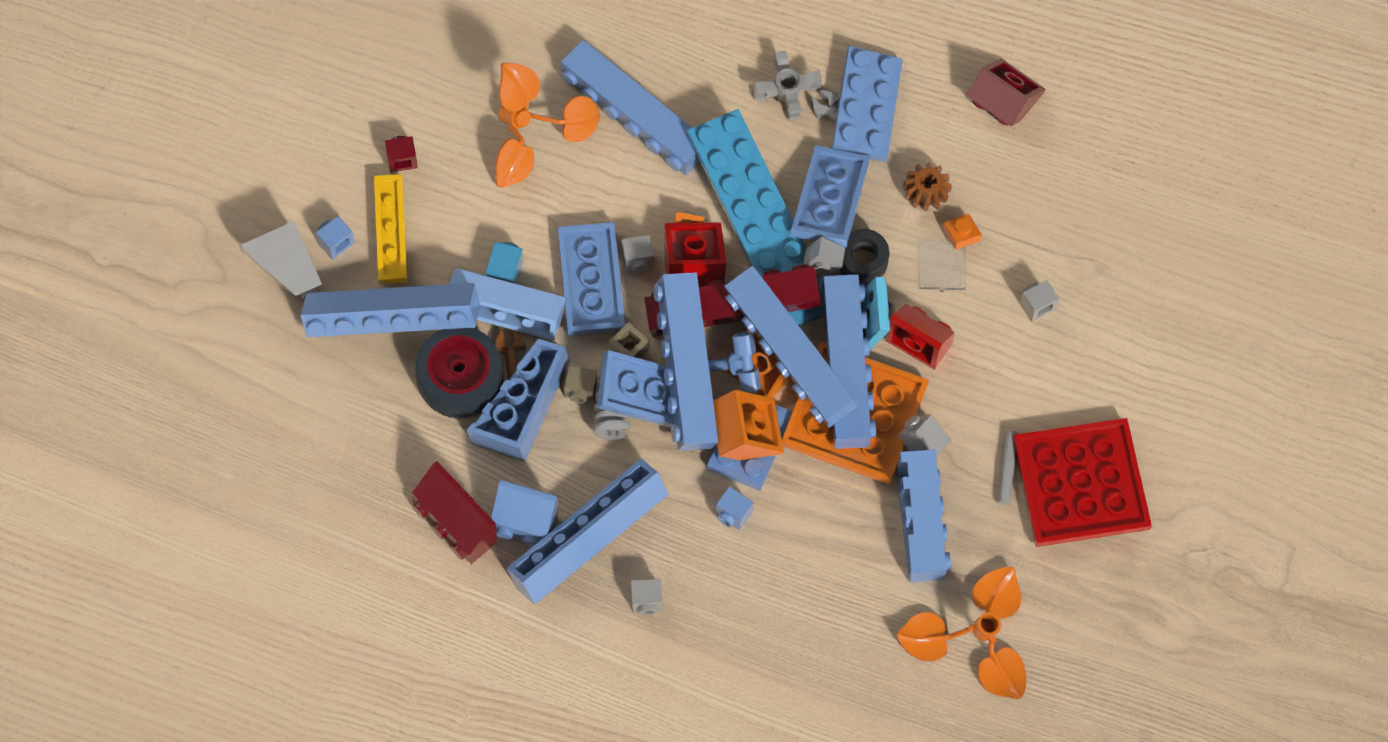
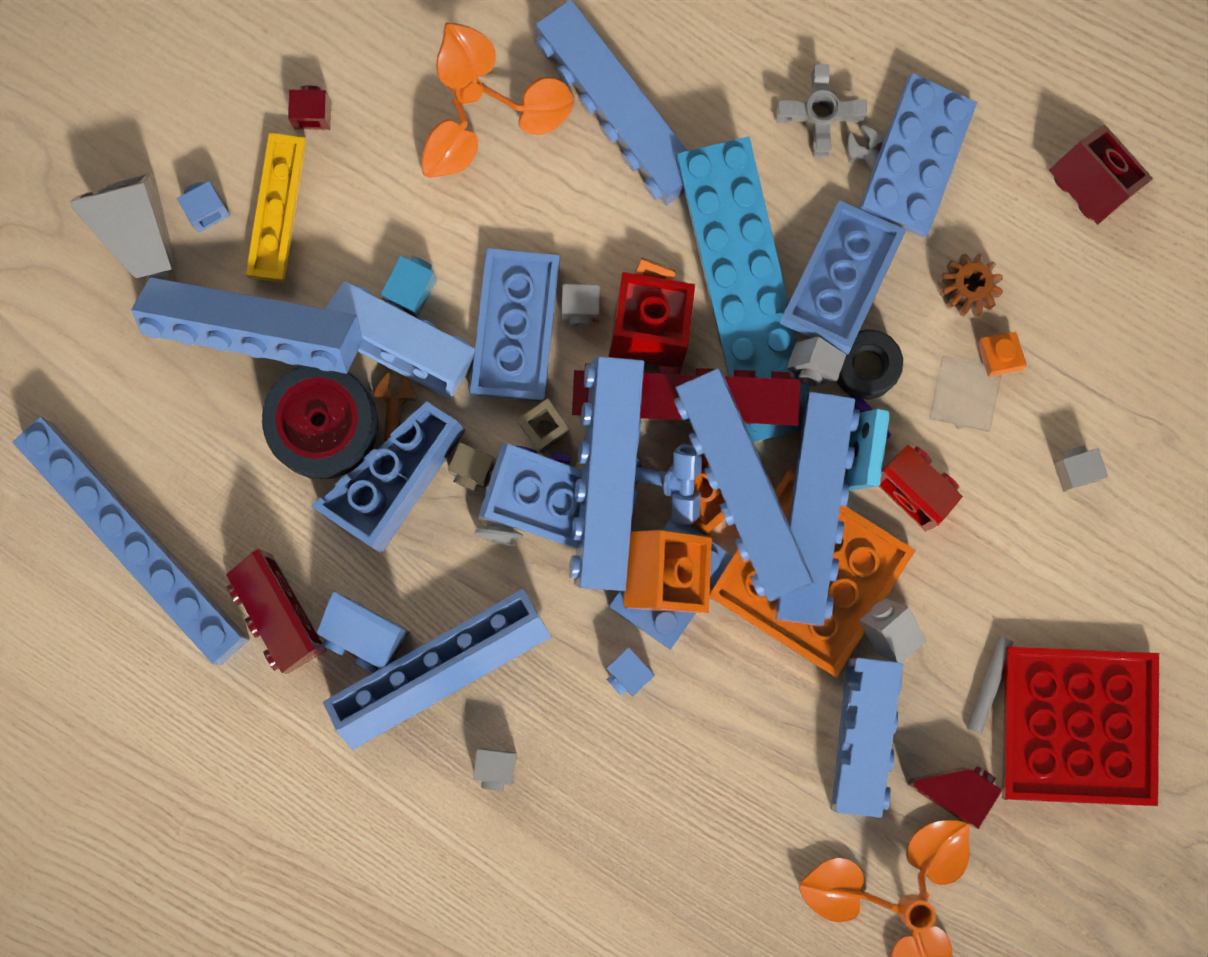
camera: 15 degrees right, 15 degrees up
(332, 486) = (131, 541): none -> medium blue brick
(1000, 545) = (960, 792): none -> dark red slope

